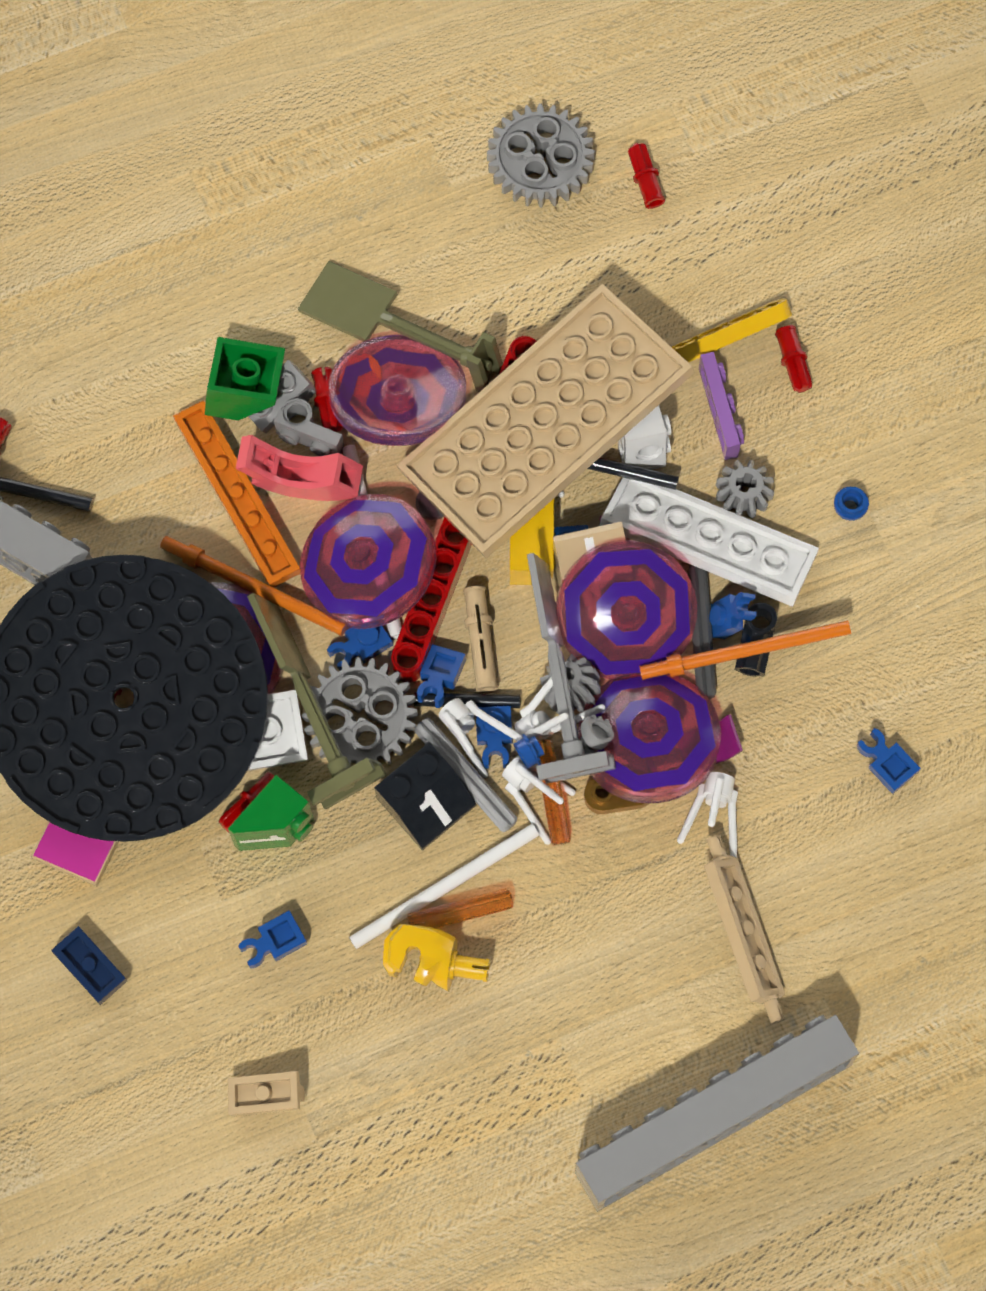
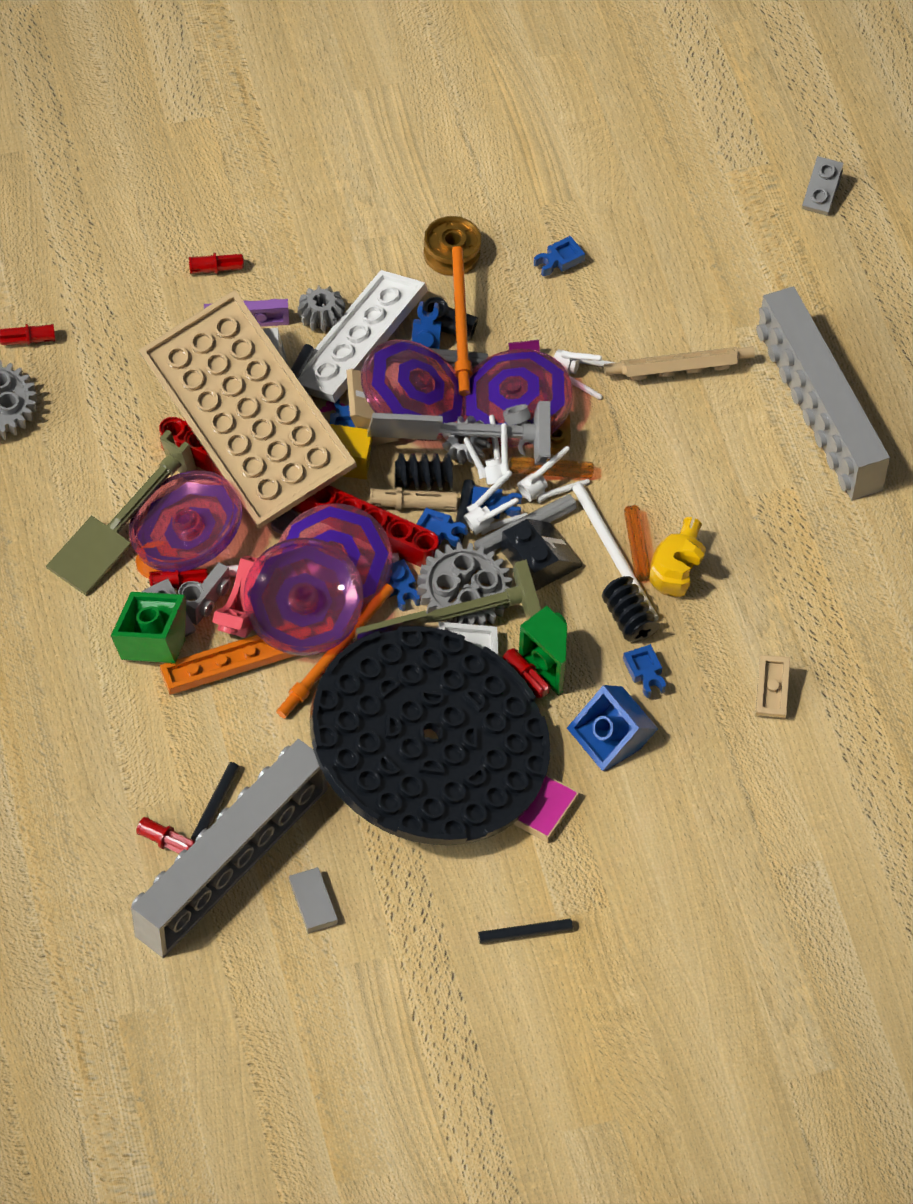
camera: 85 degrees left, 15 degrees down
(89, 965) = (649, 803): dark blue plate -> none
(187, 911) = (611, 727): none -> blue slope
(297, 530) = (303, 596): none -> clear pink dish
(350, 910) = (629, 609): none -> black piece
(516, 643) = (423, 471): none -> black piece
(529, 750) = (521, 466): blue plate -> none
(734, 330) = (180, 287): yellow beam -> none
(851, 494) = (345, 241): blue plate -> none
(891, 612) = (443, 236): none -> pearl gold wheel

